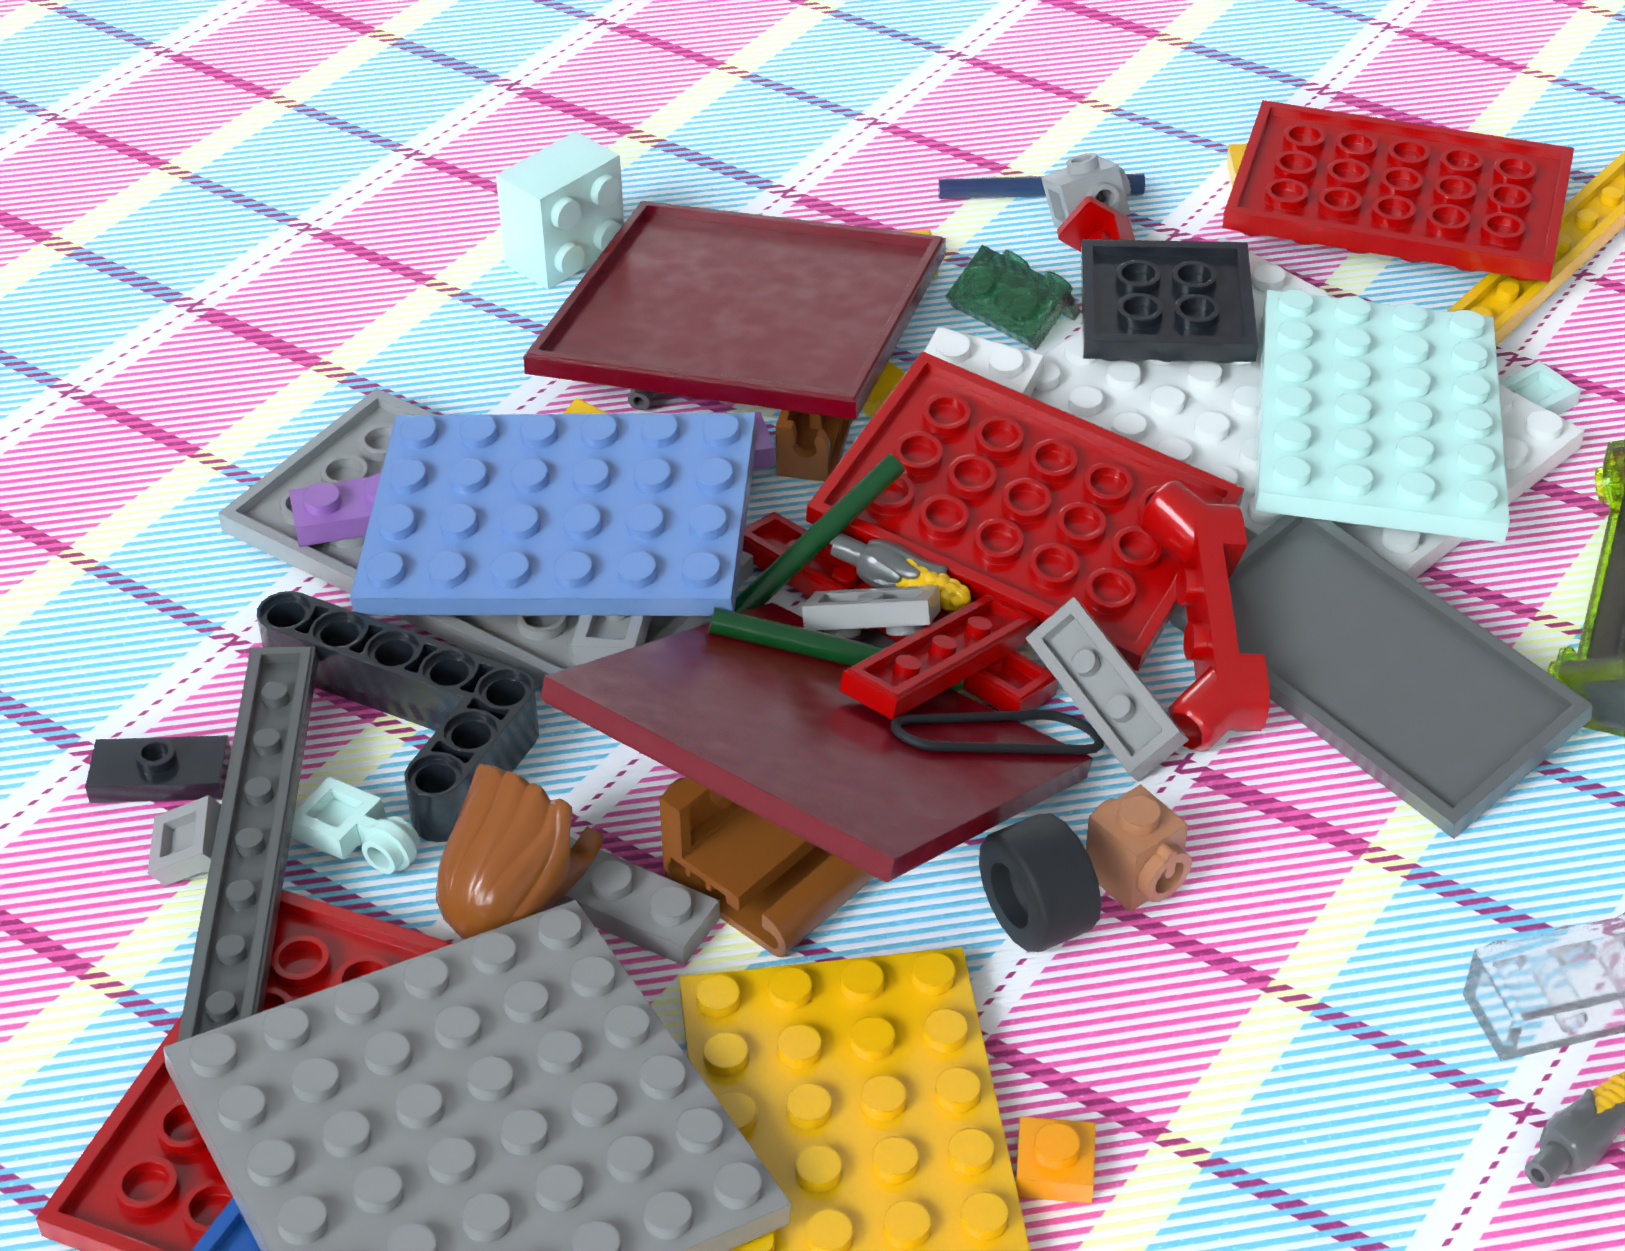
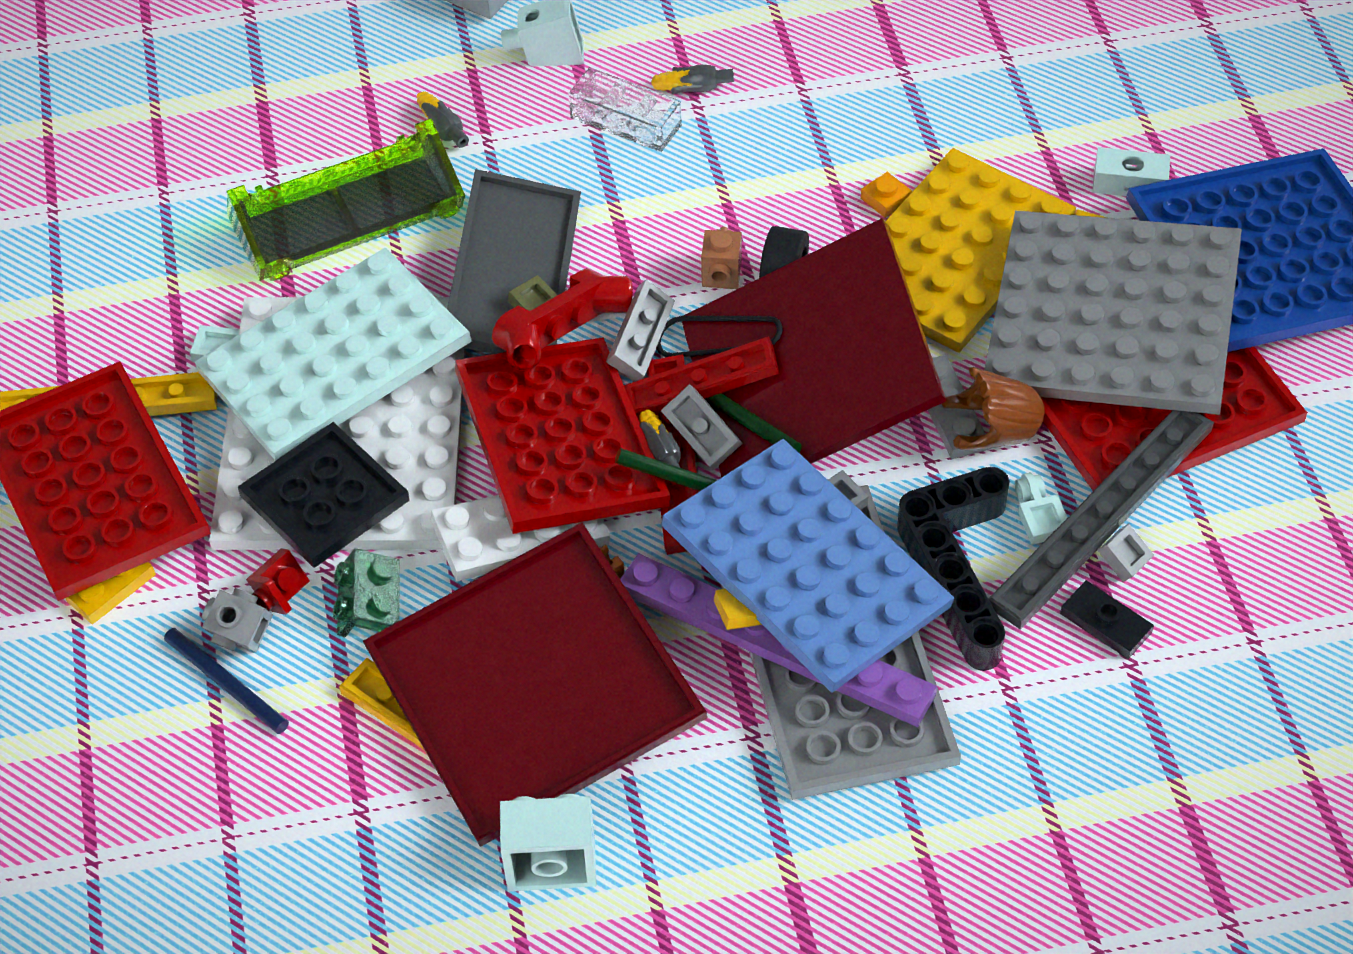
camera: 135 degrees left, 10 degrees up
(1273, 622) = (531, 294): none -> olive plate

